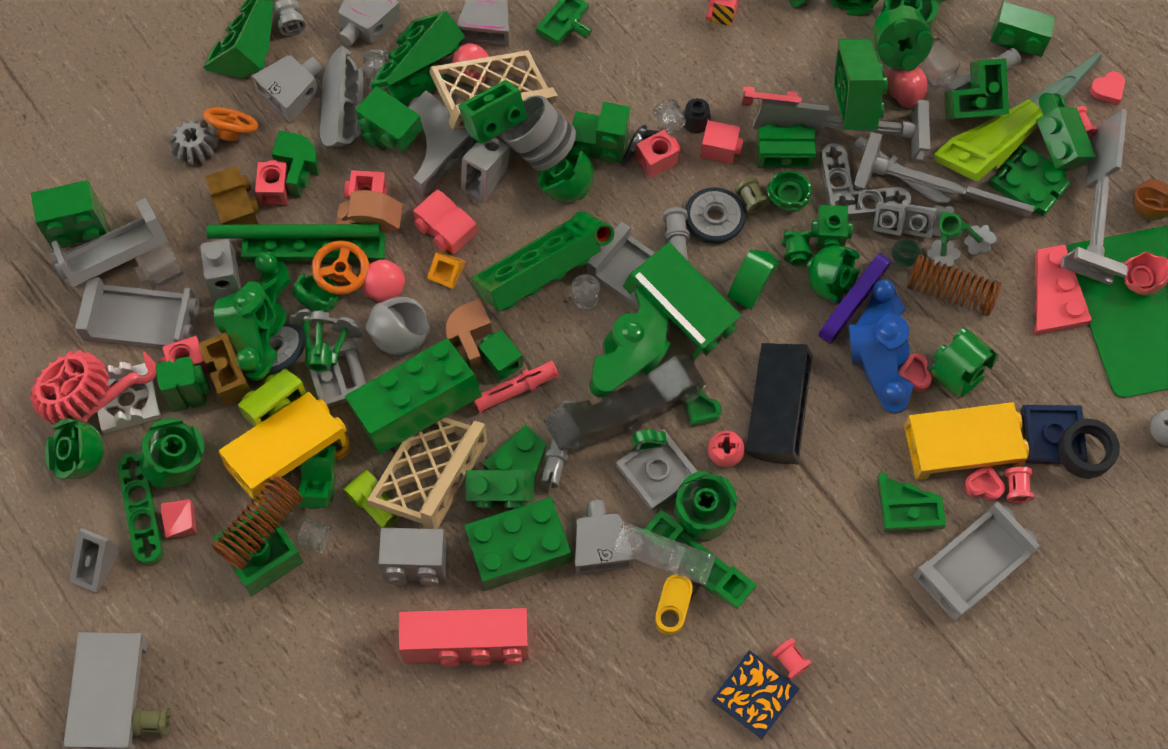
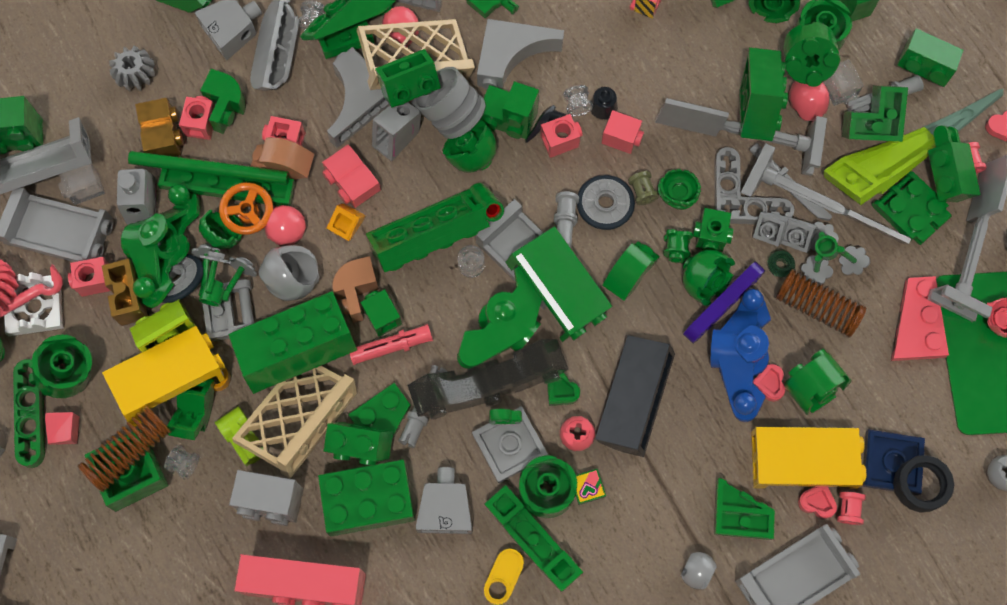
camera: 10 degrees right, 5 degrees up
(182, 383) = (82, 301): green brick -> none
(228, 122) = (166, 57): orange piece -> none
(387, 121) = (310, 73): green brick -> none
(589, 68) = (509, 44): none -> light grey arch
(664, 553) = (500, 531): clear slope -> none
(748, 502) = (589, 487): none -> tile
(749, 95) = (656, 91): coral flag -> none
(785, 146) = (683, 144): green brick -> none
(874, 568) = (698, 570): none -> light grey piece

